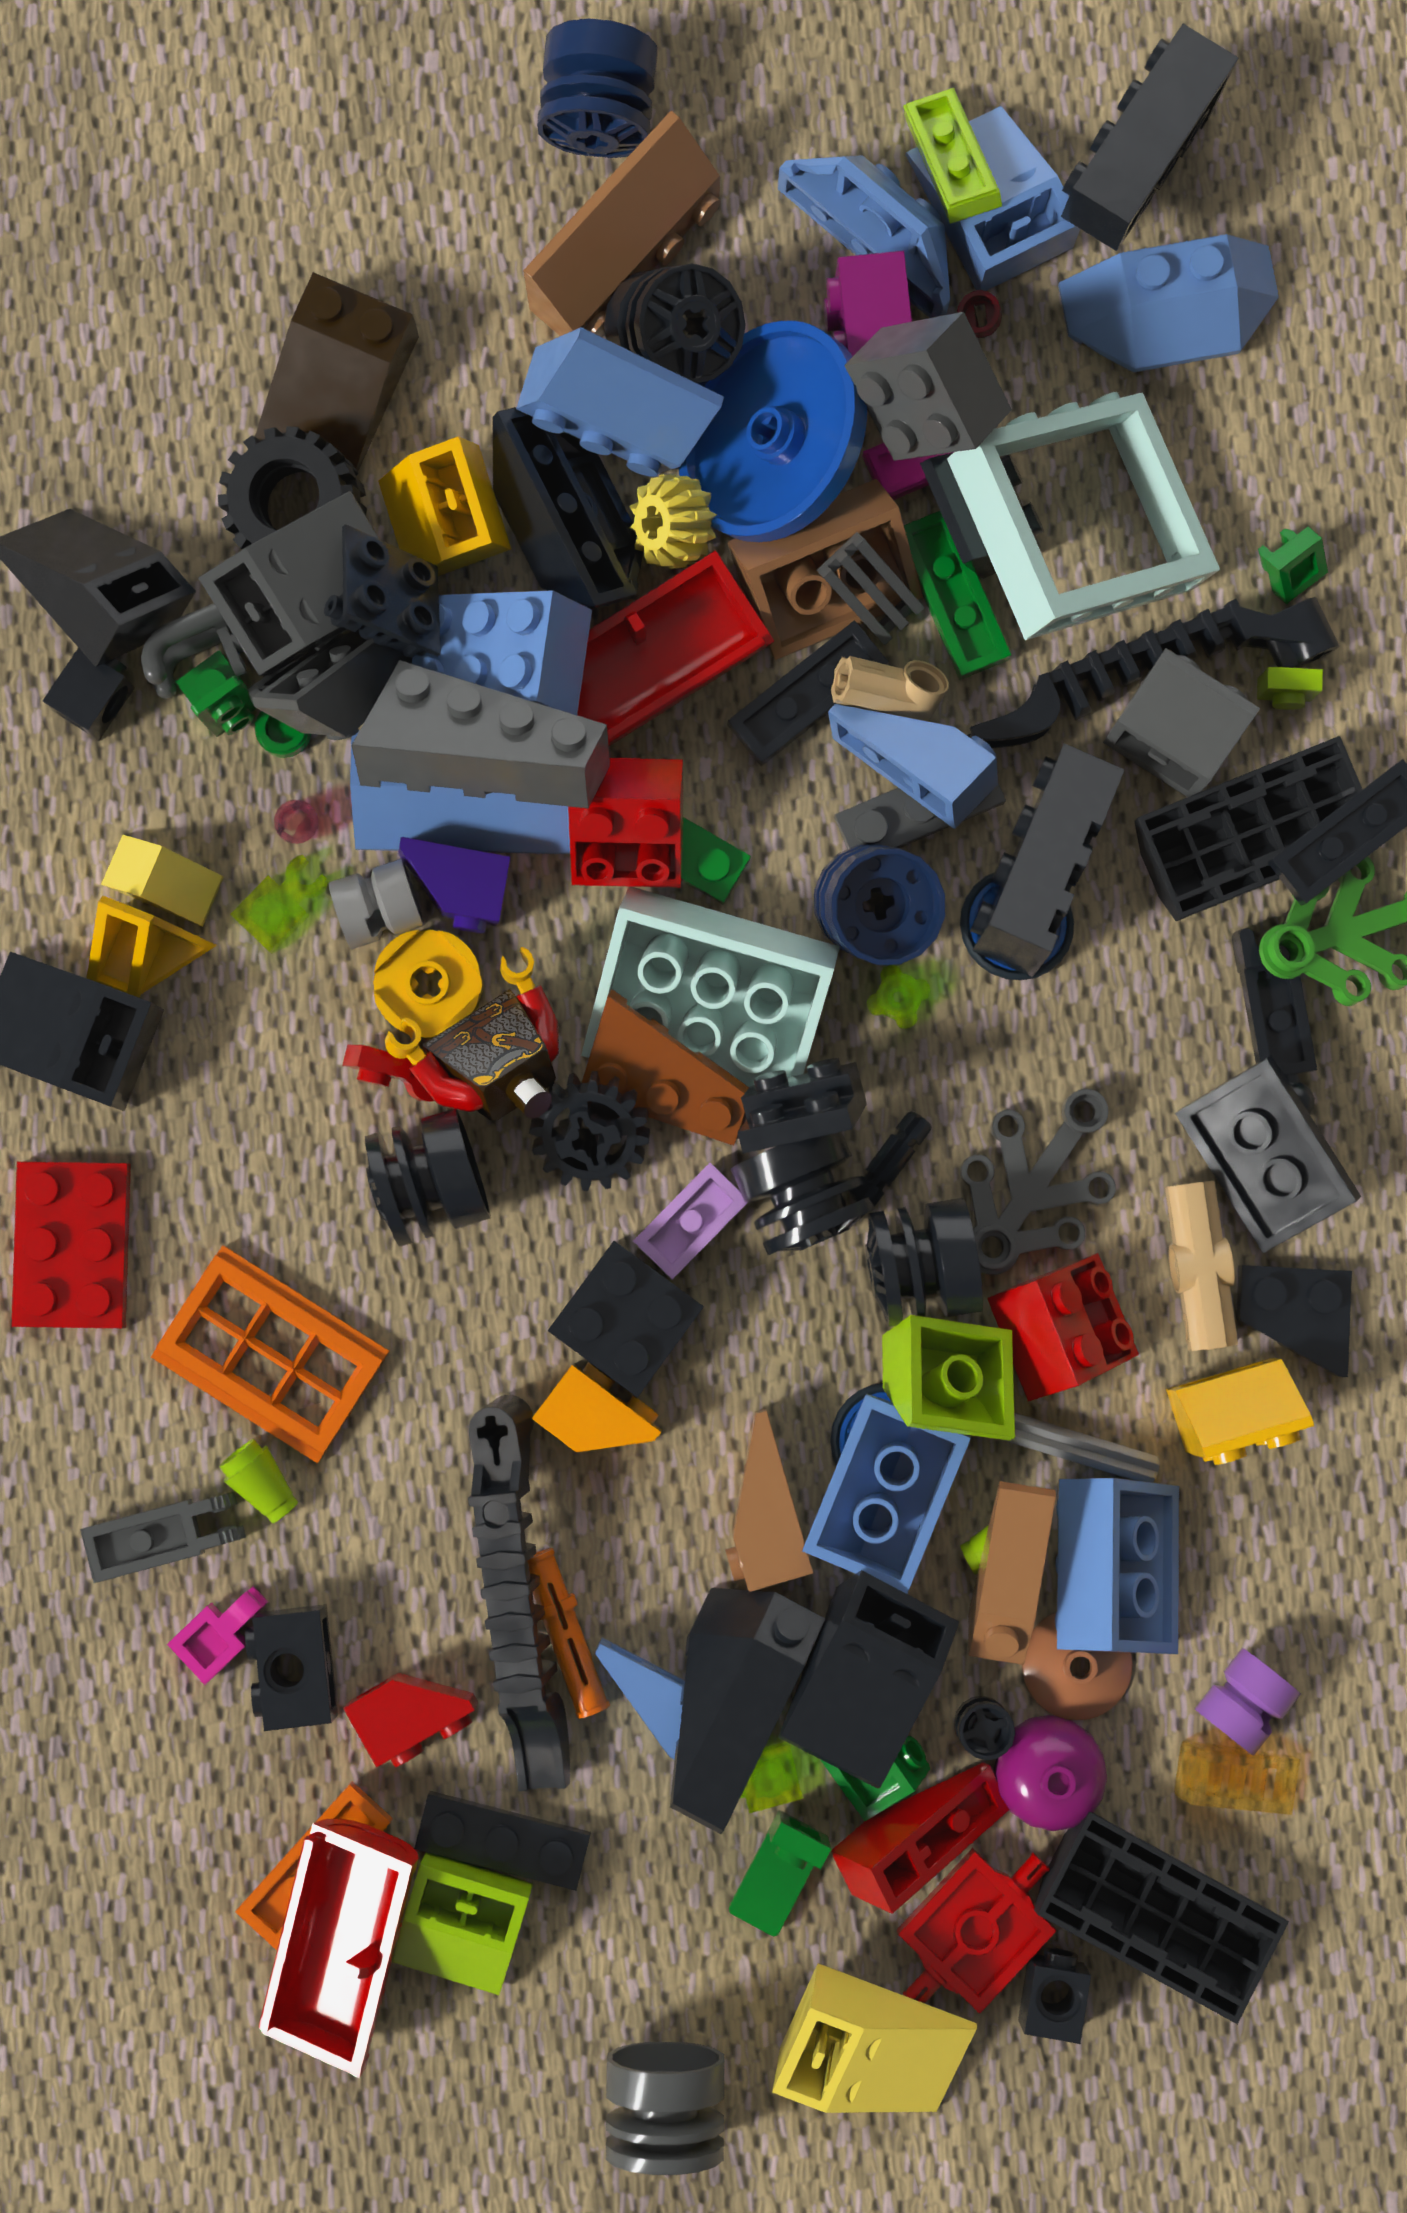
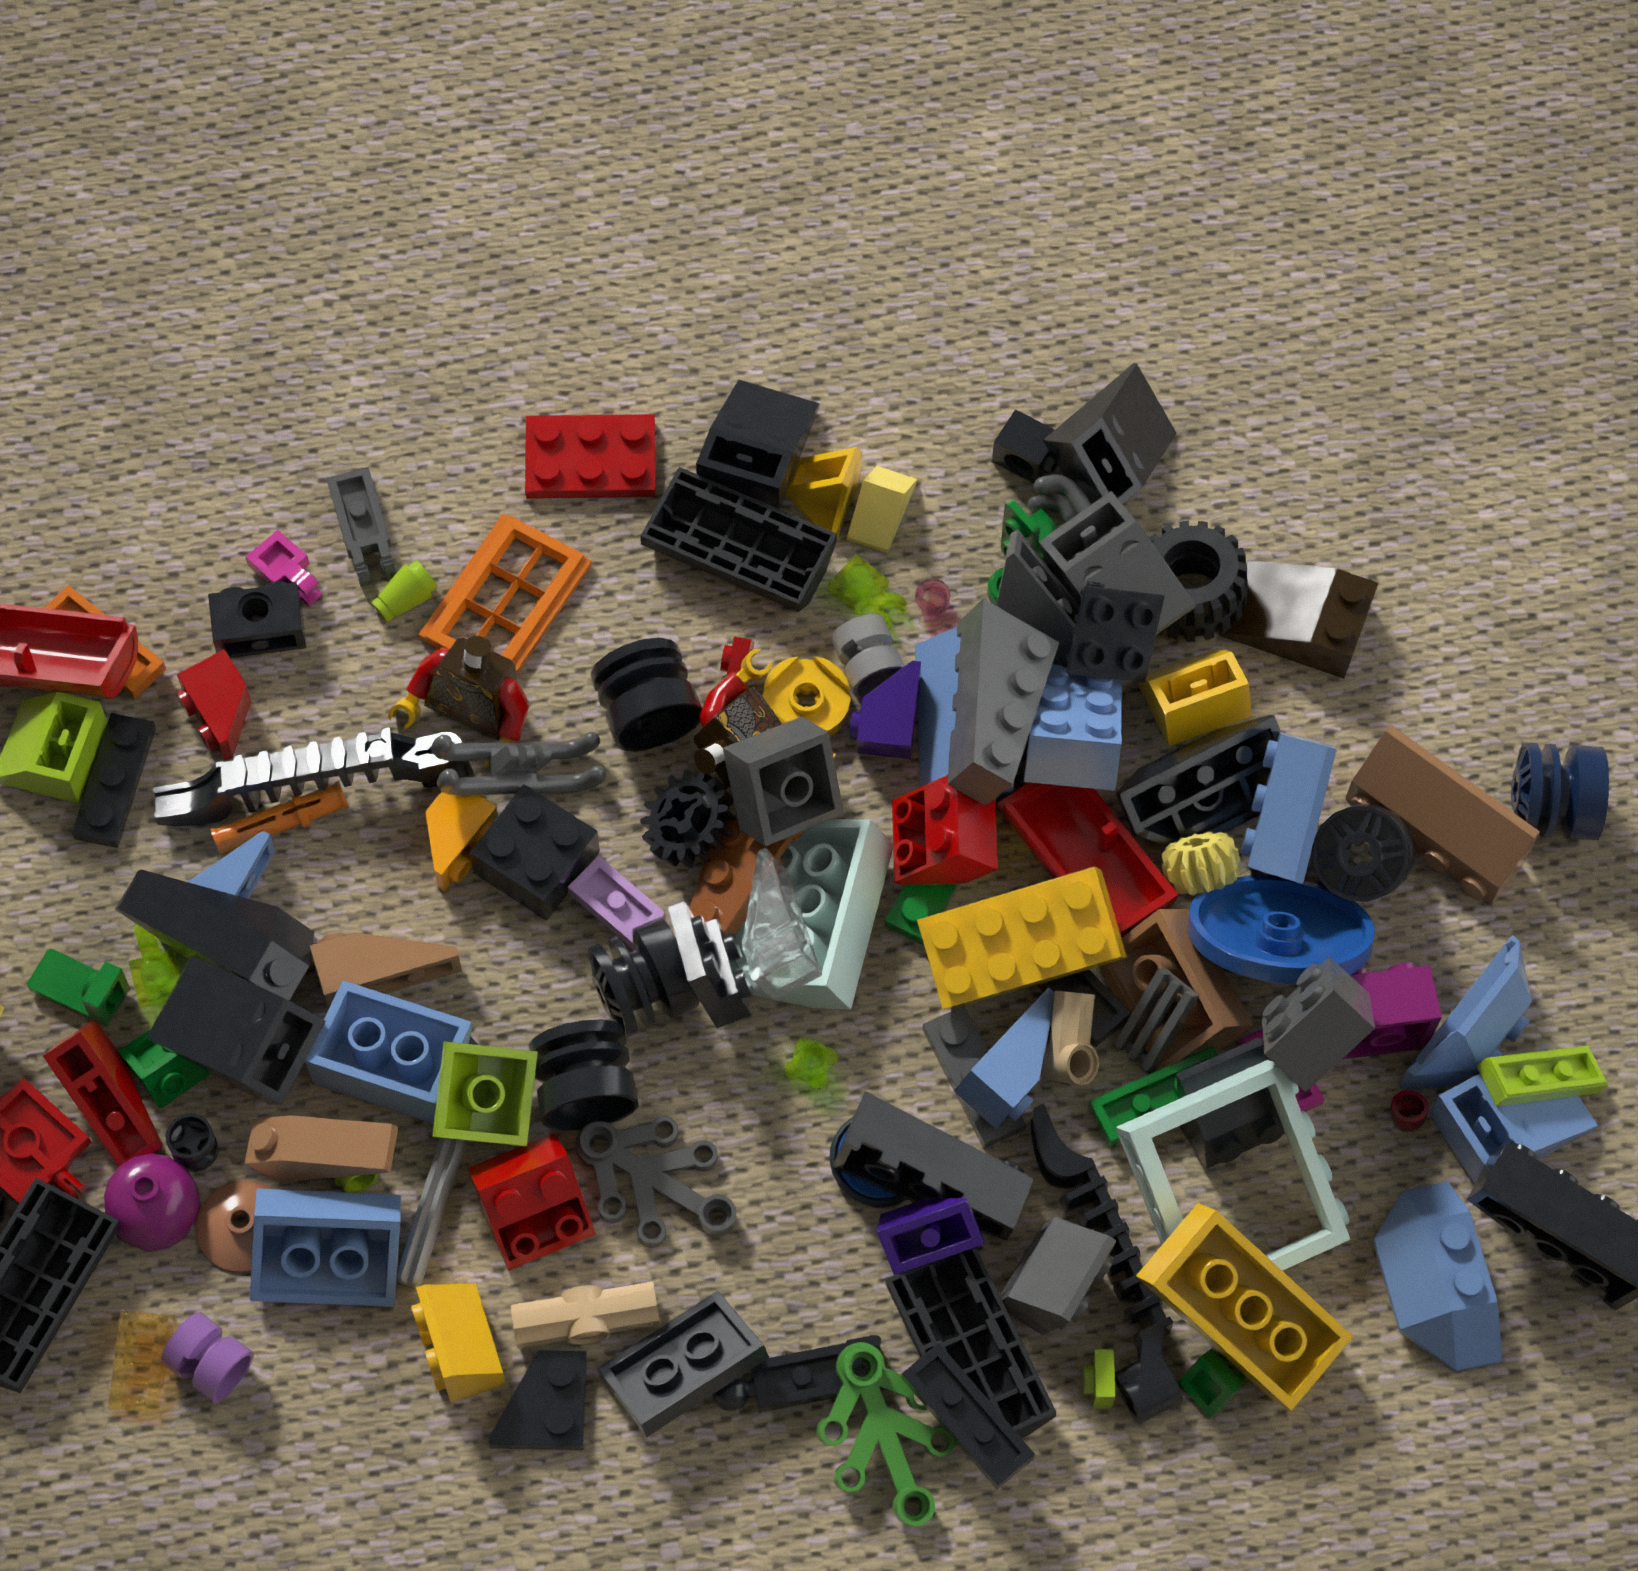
camera: 90 degrees right, 20 degrees down
(209, 1058) = (740, 540): none -> black piece
(409, 1391) = (469, 687): none -> torso
(519, 1340) = (516, 765): none -> dark grey piece
(572, 1008) = (783, 781): none -> dark grey brick
(763, 1026) = (775, 933): none -> clear slope
(776, 735) = (1022, 938): none -> yellow brick
(892, 1157) = (671, 1060): black axle -> none
(904, 920) = (862, 1020): dark blue wheel -> none
(1128, 869) = (927, 1232): none -> dark purple slope
(1234, 514) = (1244, 1306): none -> yellow brick

